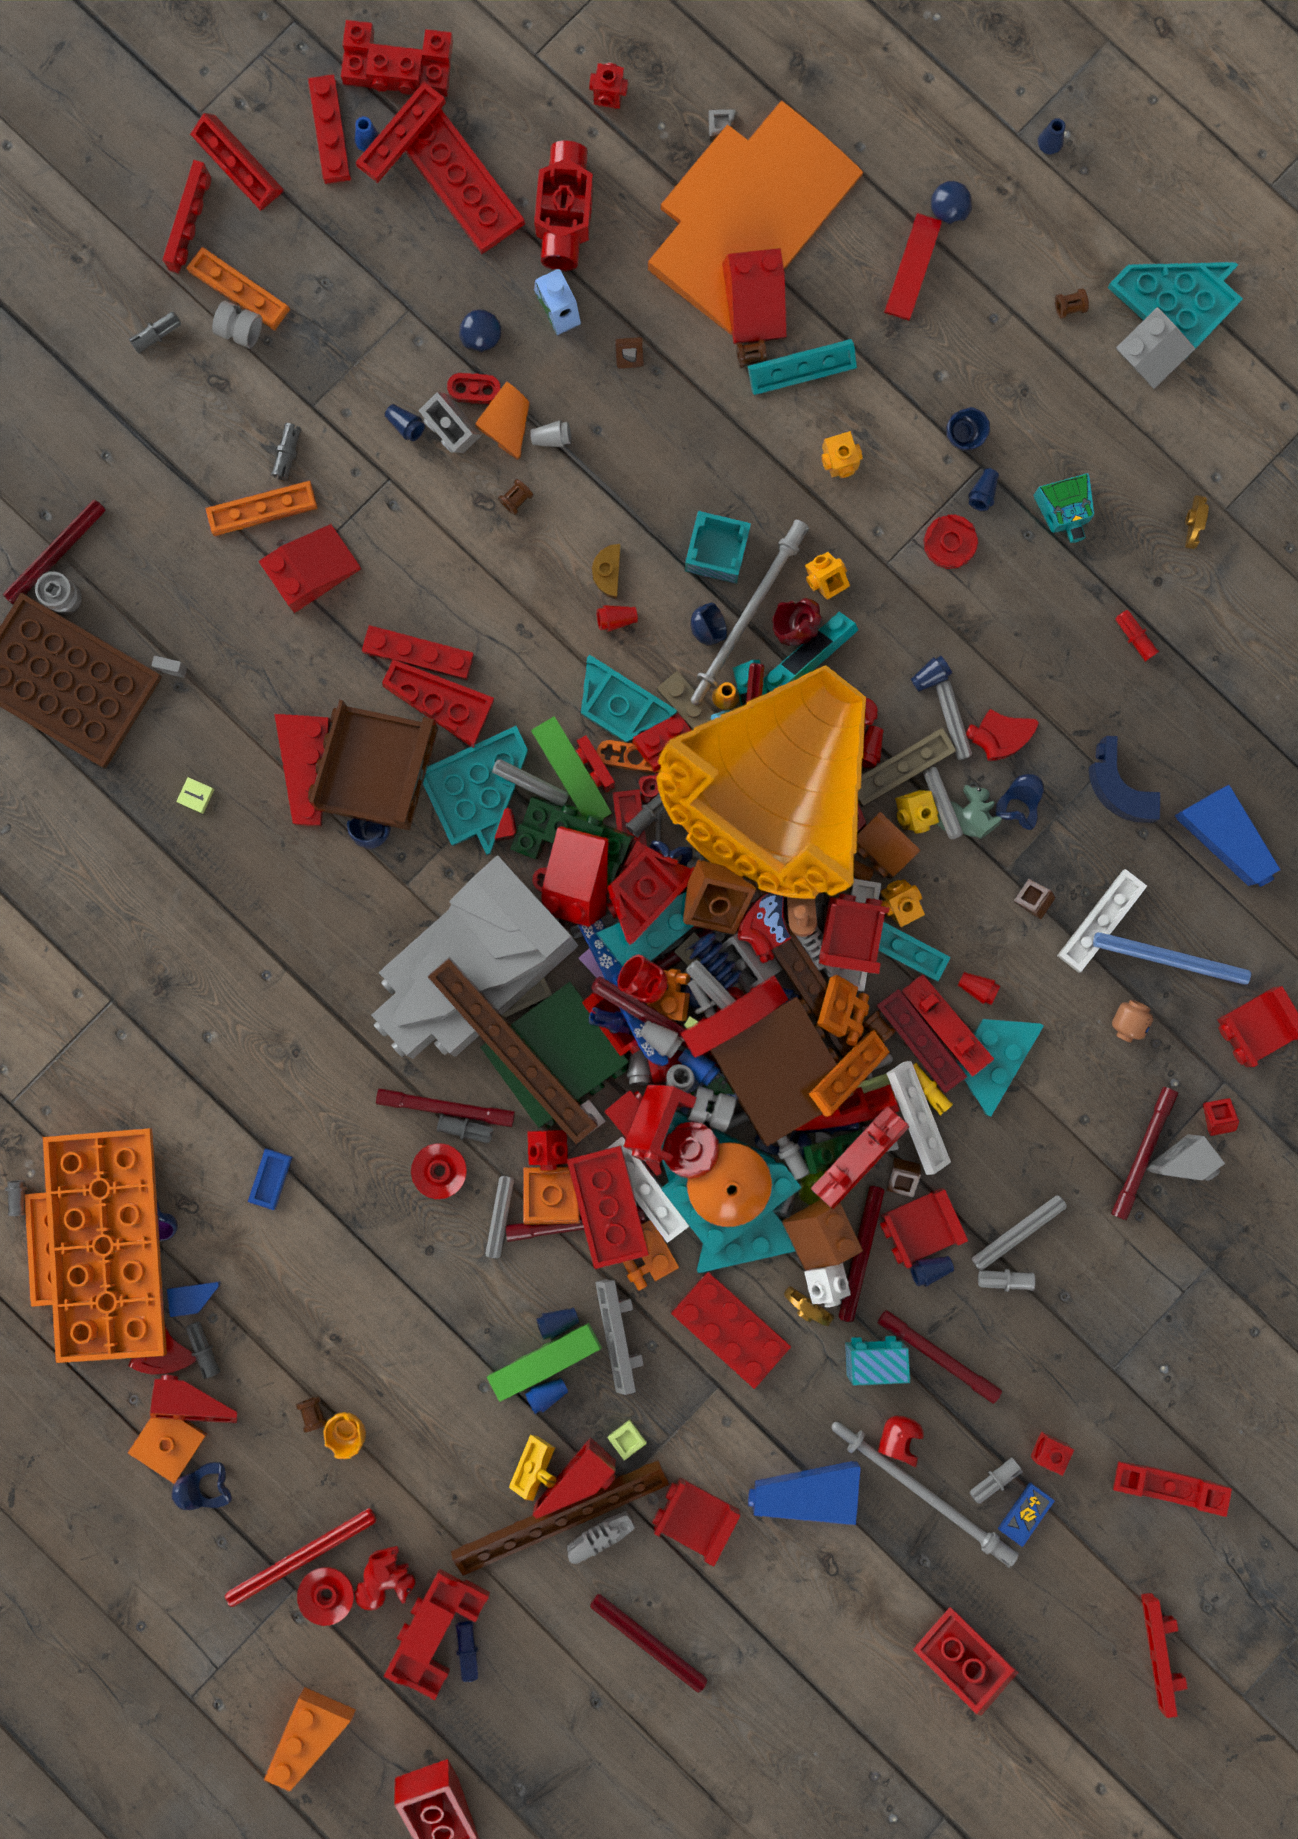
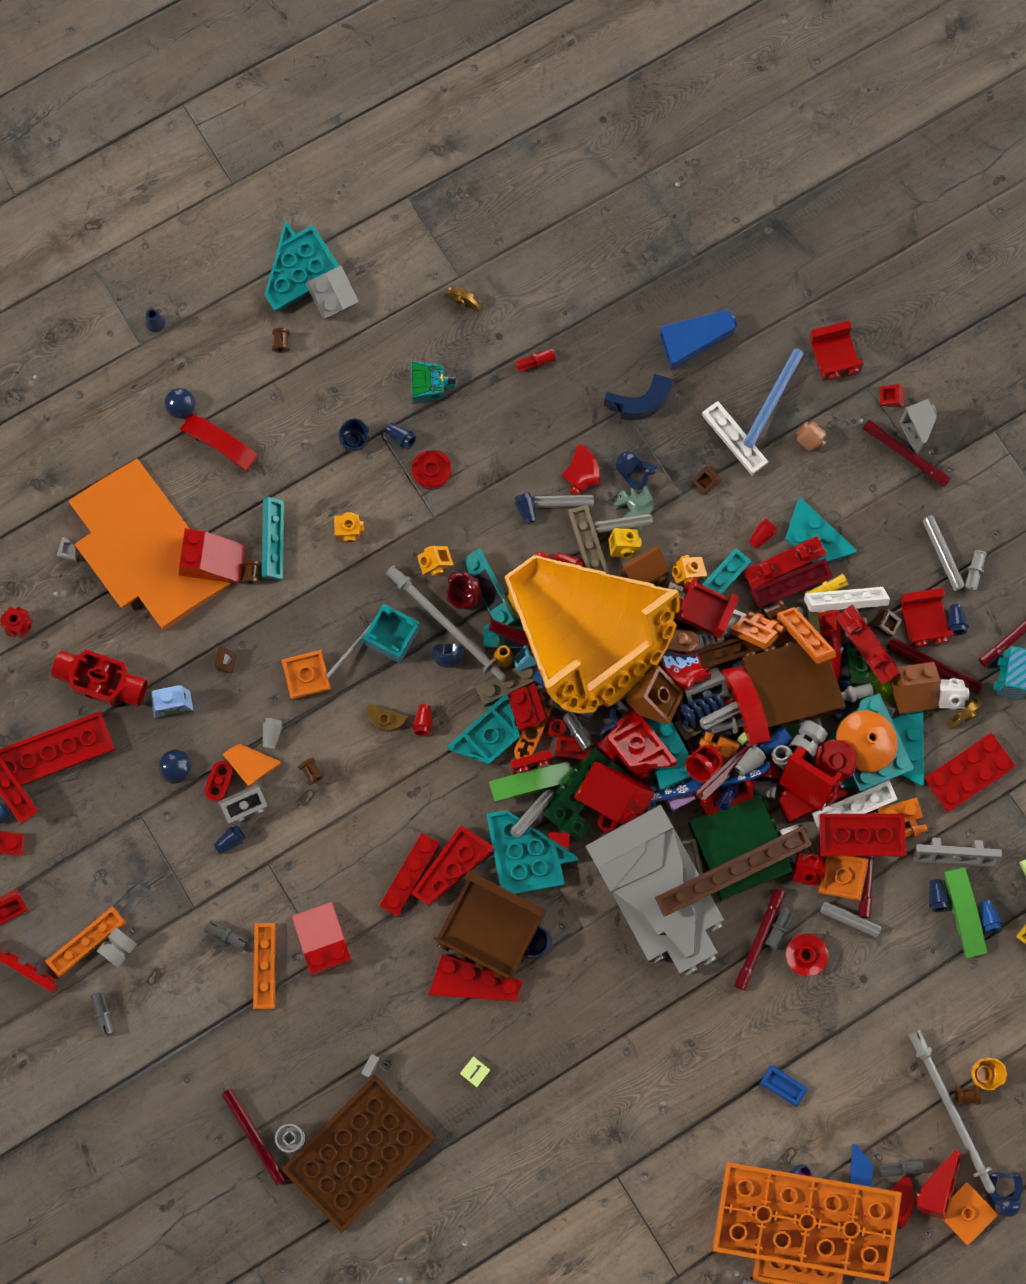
camera: 75 degrees left, 10 degrees down
(352, 1347) = (924, 1054): none -> light grey bar
(637, 457) = (306, 675): none -> orange plate
(669, 496) = (347, 653): none -> light grey axle

